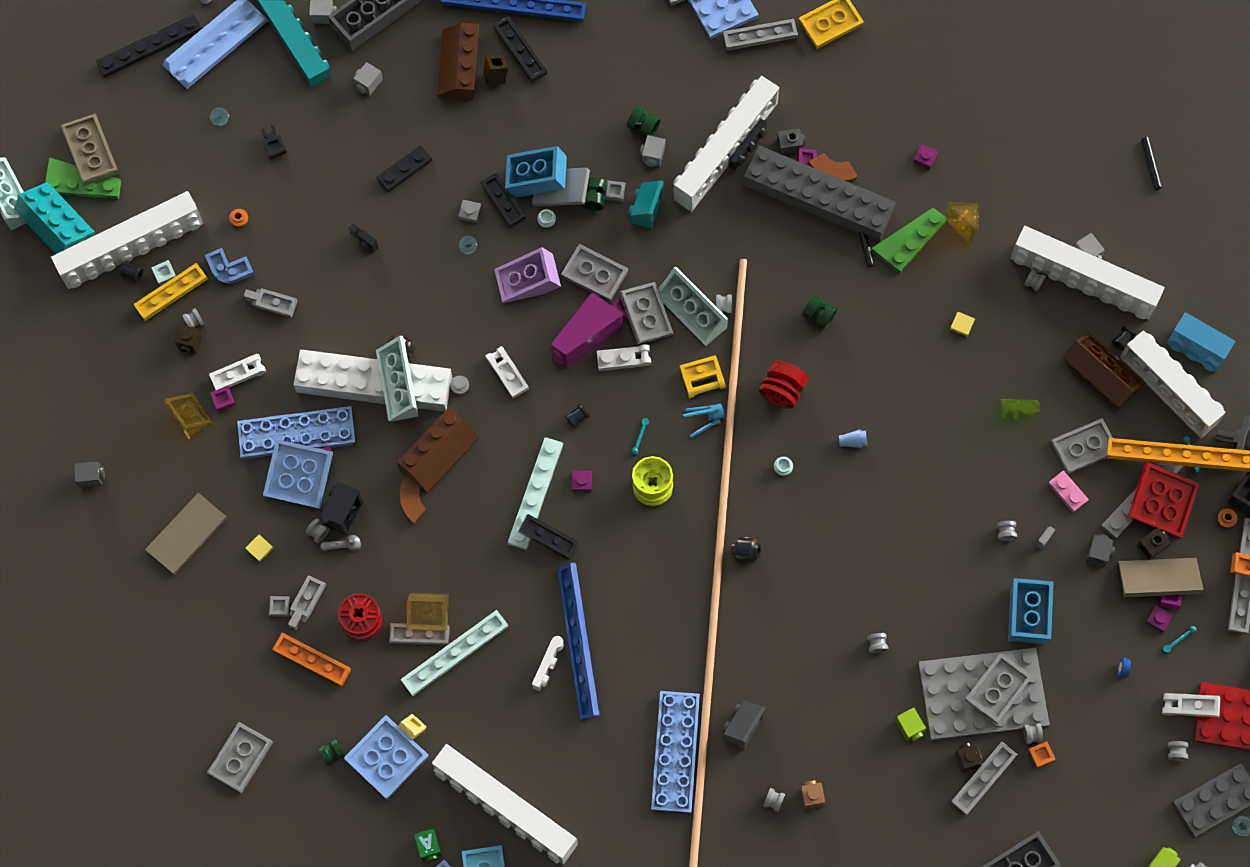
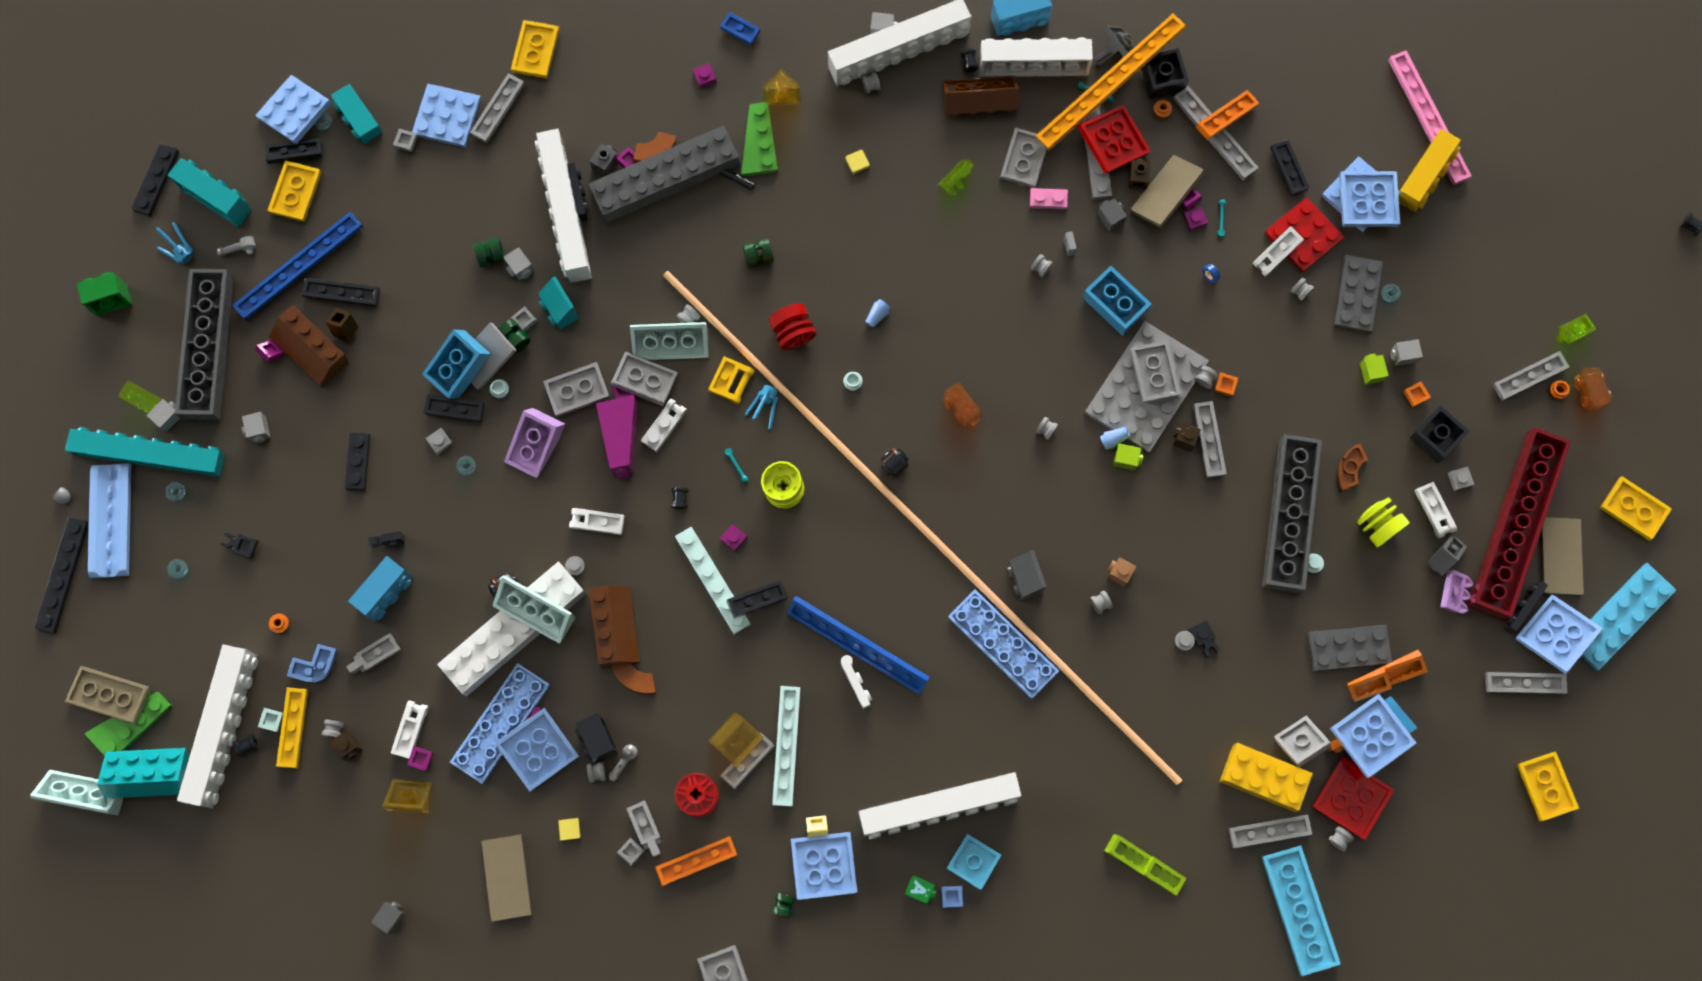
camera: 50 degrees left, 5 degrees up
(273, 62) = (171, 488): none -> clear light blue plate
(322, 264) = (381, 589): none -> dark azure brick
(432, 39) = (269, 351): none -> magenta plate
(837, 562) = (962, 404): none -> clear orange brick
(915, 700) = (1114, 437): none -> light blue cone
(987, 150) = (740, 28): none -> blue plate

